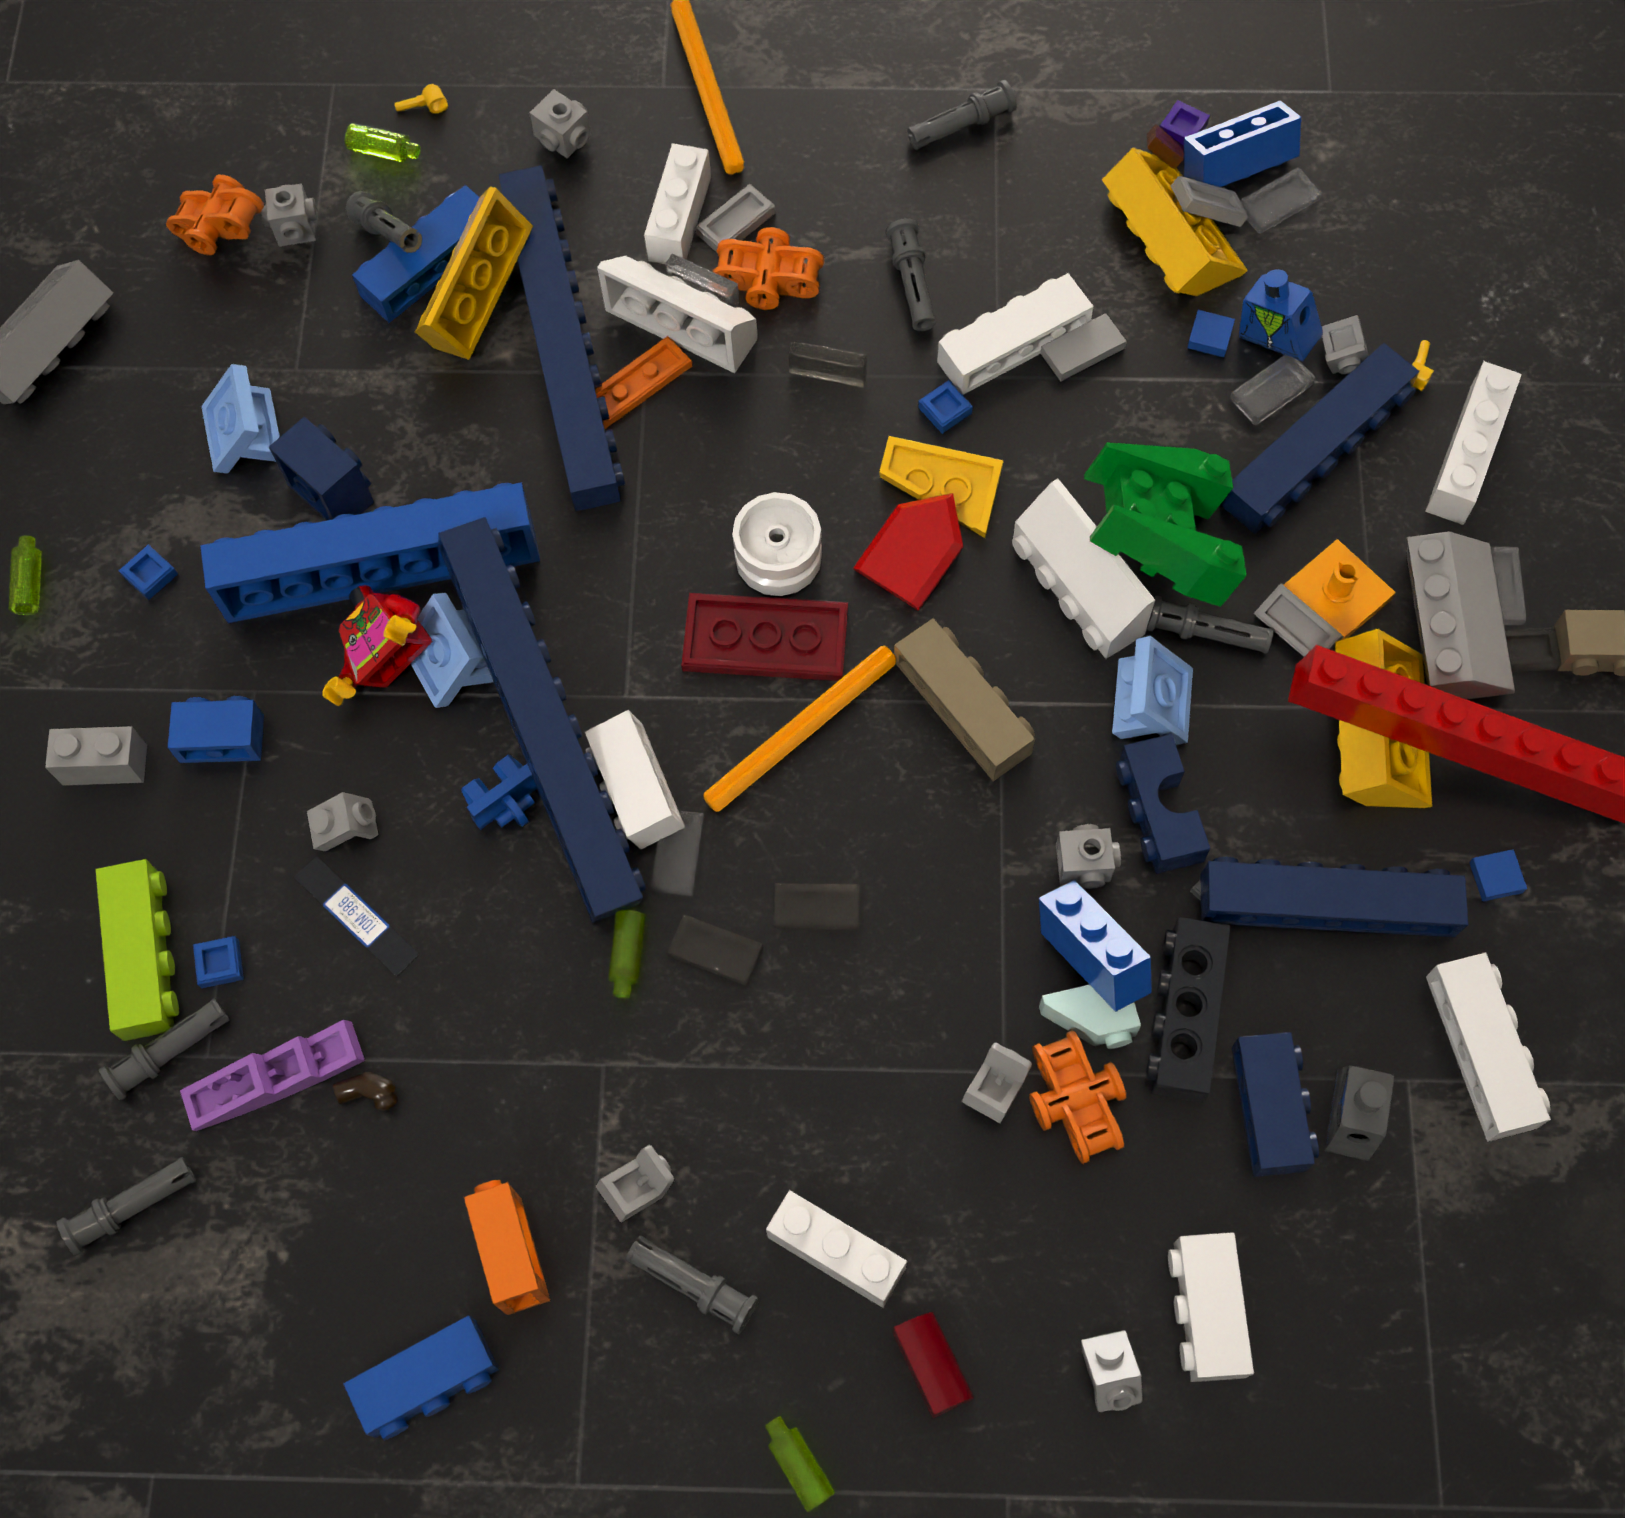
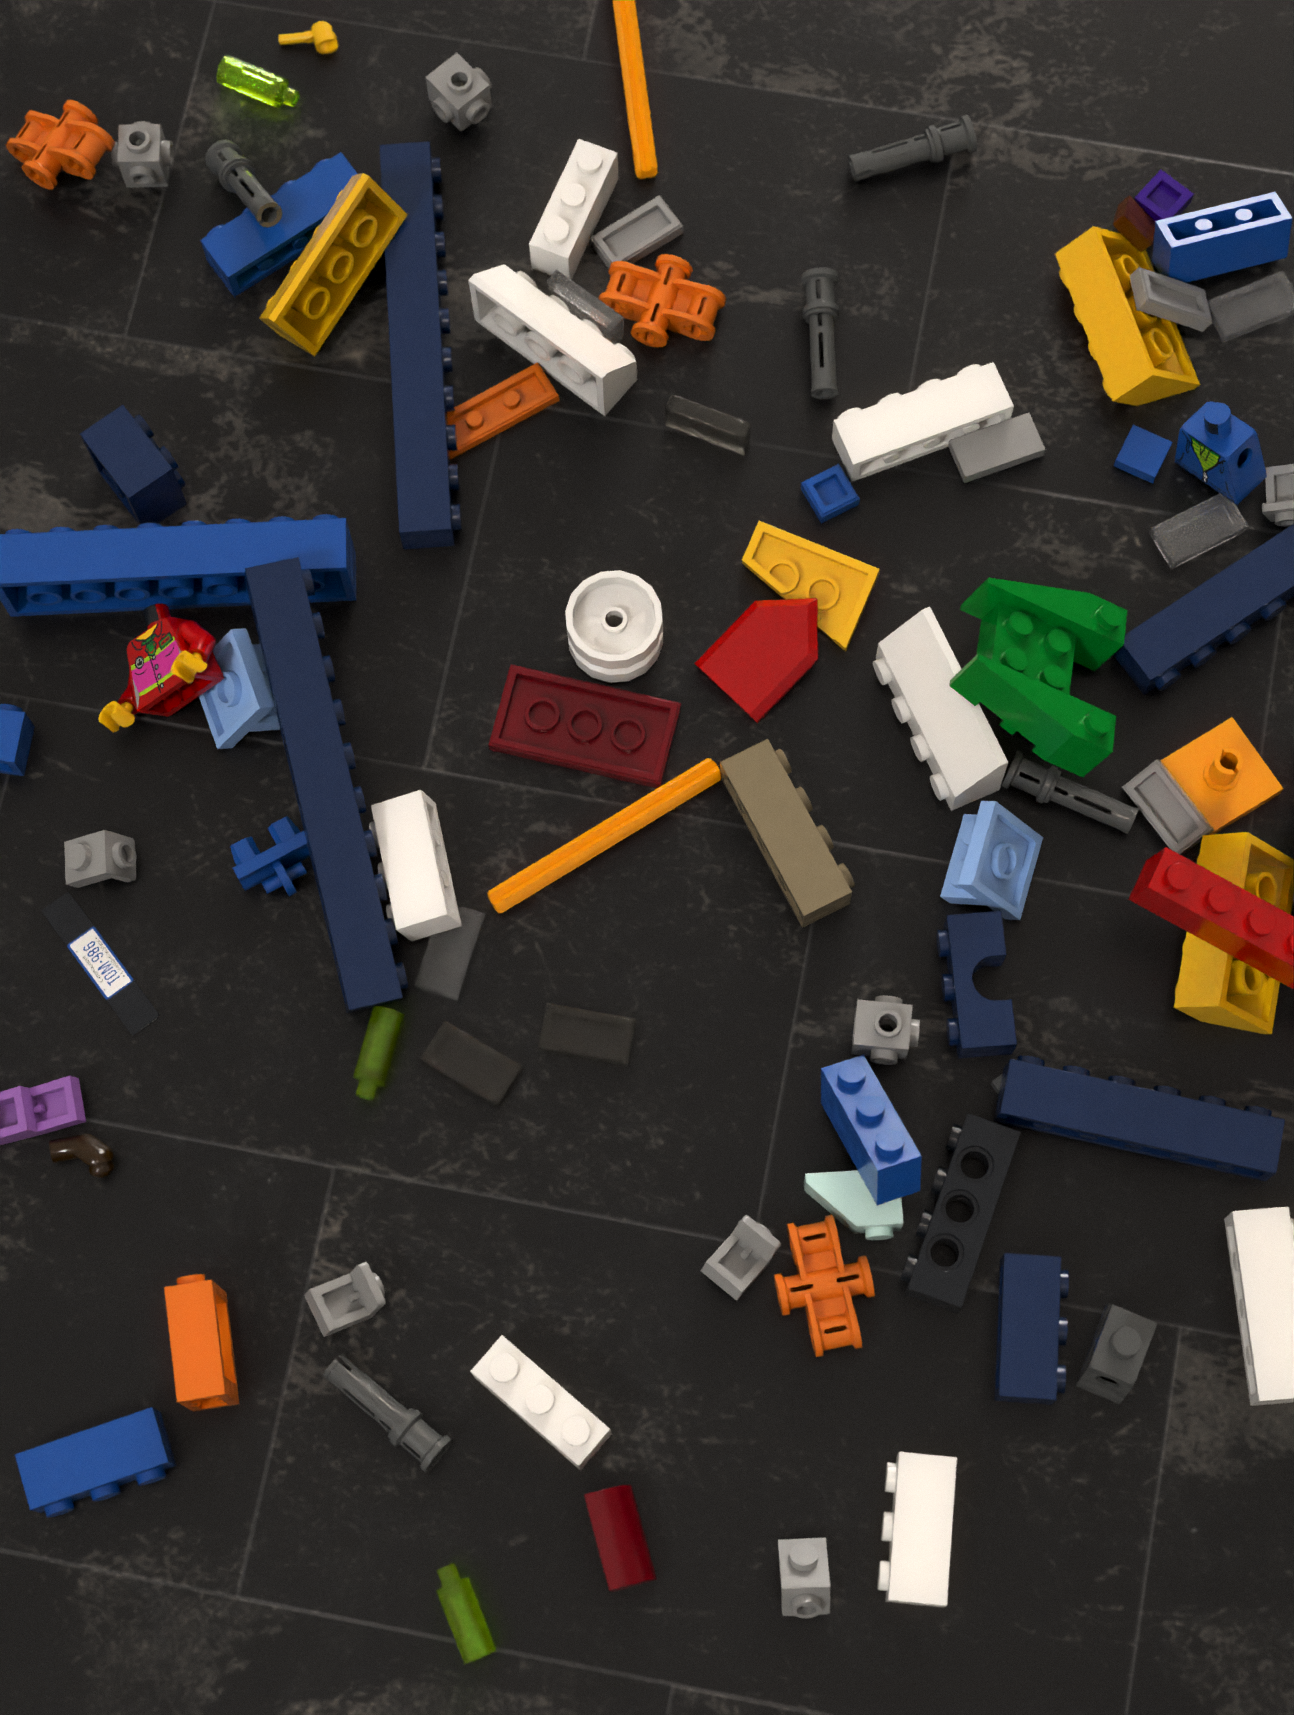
camera: 10 degrees right, 5 degrees up
(239, 420) = (54, 390): light blue bracket -> none

